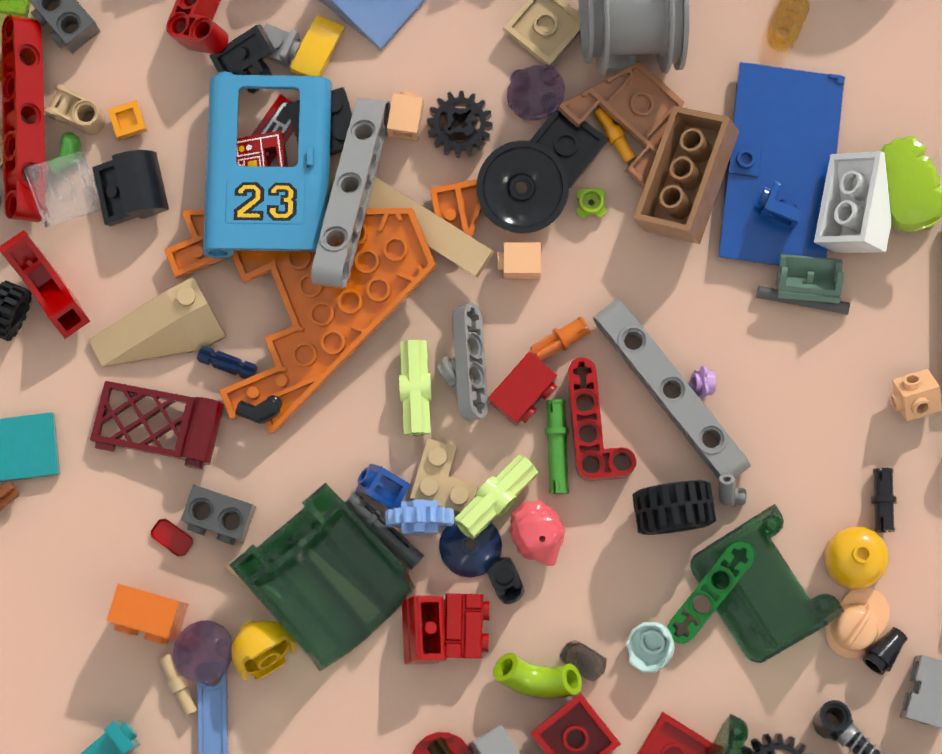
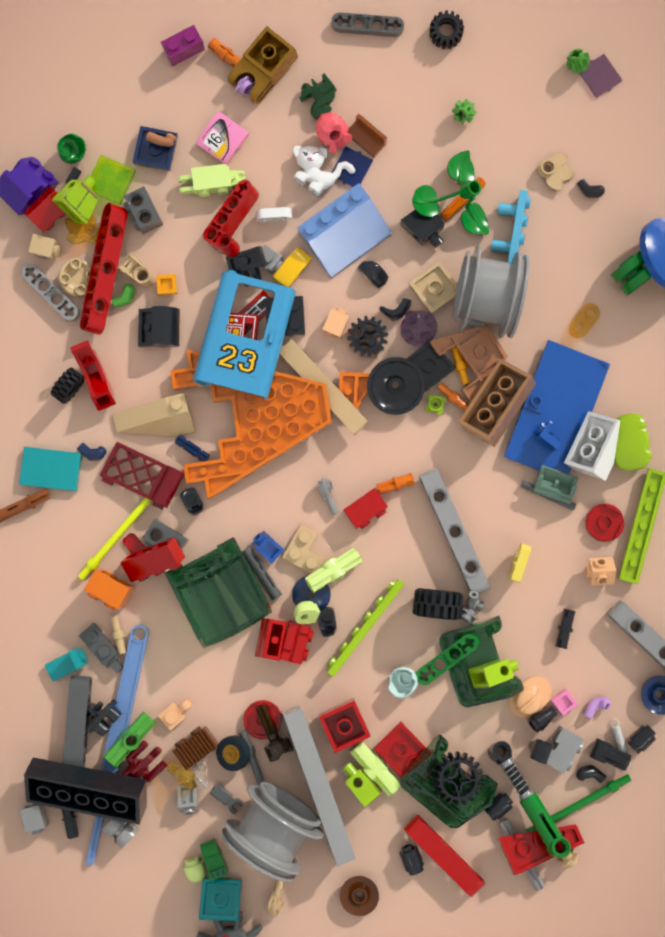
camera: 15 degrees right, 5 degrees up
(63, 188) = (118, 318): clear tile -> none
(72, 409) = (92, 454): none -> dark blue arm
(112, 578) = (94, 561): none -> neon yellow bar
(156, 711) = (101, 647): none -> dark grey hinge
(203, 651) = (137, 619): clear purple dish -> none
(206, 550) = (153, 560): none -> red brick
(246, 445) = (192, 501): none -> black hair
(260, 648) = (171, 626): yellow cylinder -> none
(262, 412) = (204, 485): black arm -> none
(348, 210) = (286, 376): light grey beam -> none
(415, 387) = (301, 491): yellowish green piece -> none
(419, 517) = (284, 572): light blue gear -> none
(446, 26) = (374, 273): none -> black hair
(470, 574) = (306, 612): none -> yellowish green piece
(471, 395) = (333, 511): light grey beam -> none
(498, 76) = (399, 312): none -> black hair
(520, 260) = (383, 430): light nougat brick -> none
(537, 532) = (353, 597): coral animal -> none
(537, 680) = (331, 685): lime cylinder -> none
(557, 446) = (377, 548): bright green pin -> none
(562, 586) = (369, 620): none -> lime plate
(585, 659) = (361, 679): clear smoke hair -> none
(592, 420) = (403, 537): red beam -> none
(616, 184) = (453, 397): none -> orange bar
(703, 382) = (475, 531): lavender plate -> none
(727, 516) = (468, 615): none -> light grey plate
(786, 412) = (519, 562): none -> light yellow piece
(788, 595) = (493, 672): none -> lime torso
(856, 558) = (539, 659): yellow cylinder -> none
(895, 699) = (540, 750): none -> black piece
(901, 320) = (604, 522): none -> red tile
(912, 617) = (564, 702): none -> bright pink tile

